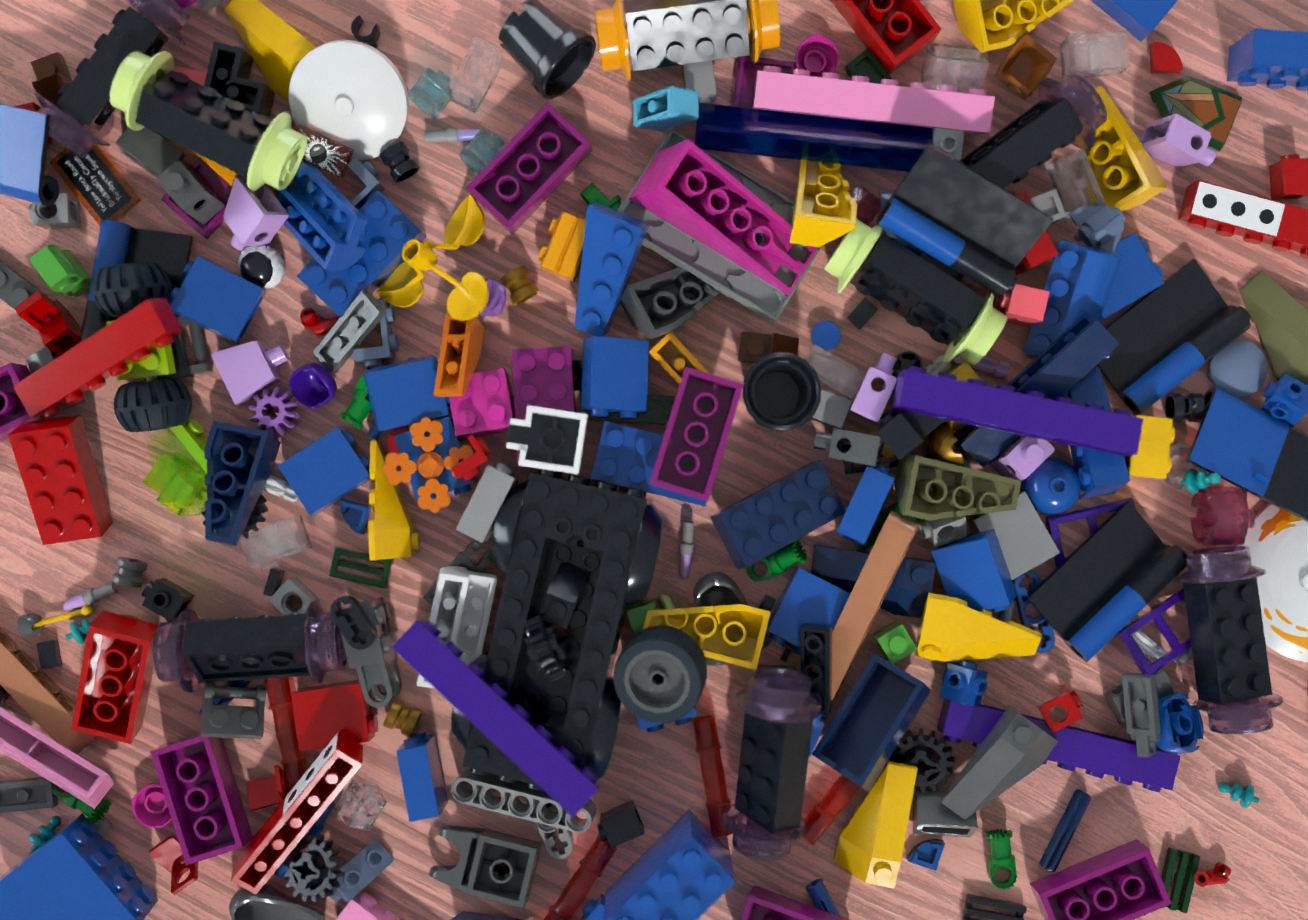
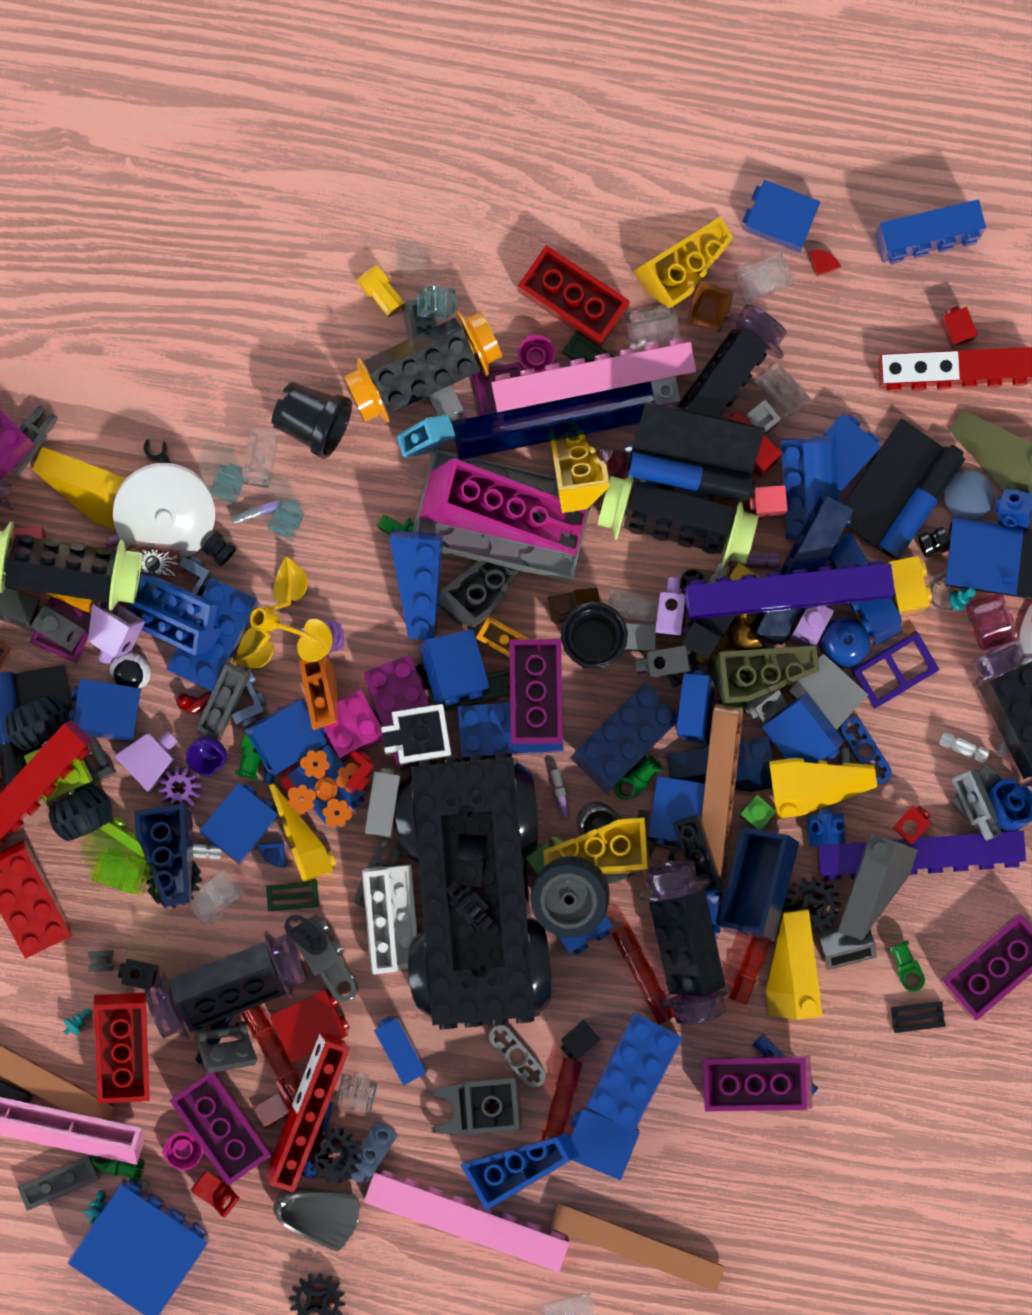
camera: 15 degrees left, 5 degrees down
(33, 624) = (33, 1031): hinge -> none
(49, 654) = (52, 1054): black piece -> none
(91, 596) = (73, 993): light grey piece -> none
(229, 77) = (57, 524): black brick -> none
(274, 581) = (223, 931): black piece -> none
(282, 597) = (239, 932): light grey brick -> none
(402, 718) = (368, 1009): pearl gold wheel -> none
(496, 717) = (447, 970): dark purple brick -> none
(511, 805) = (480, 1050): light grey beam -> none
(519, 285) = (351, 618): pearl gold wheel -> none
(529, 168) = (329, 520): magenta brick -> none
(565, 248) = (379, 574): light orange brick -> none
(825, 335) = (618, 578): blue tile -> none
(862, 313) = (642, 550): black piece -> none
(927, 853) = (844, 983): blue tile -> none
(1065, 830) = (953, 926): dark blue axle -> none
(1100, 226) = (811, 417): sand blue brick -> none
(1106, 581) = (916, 706): black door -> none
(1121, 162) = (814, 360): yellow wedge -> none
(1155, 614) = (958, 755): dark purple window -> none
(1178, 141) = (854, 328): lavender torso -> none
(1201, 104) = (864, 295): tile -> none

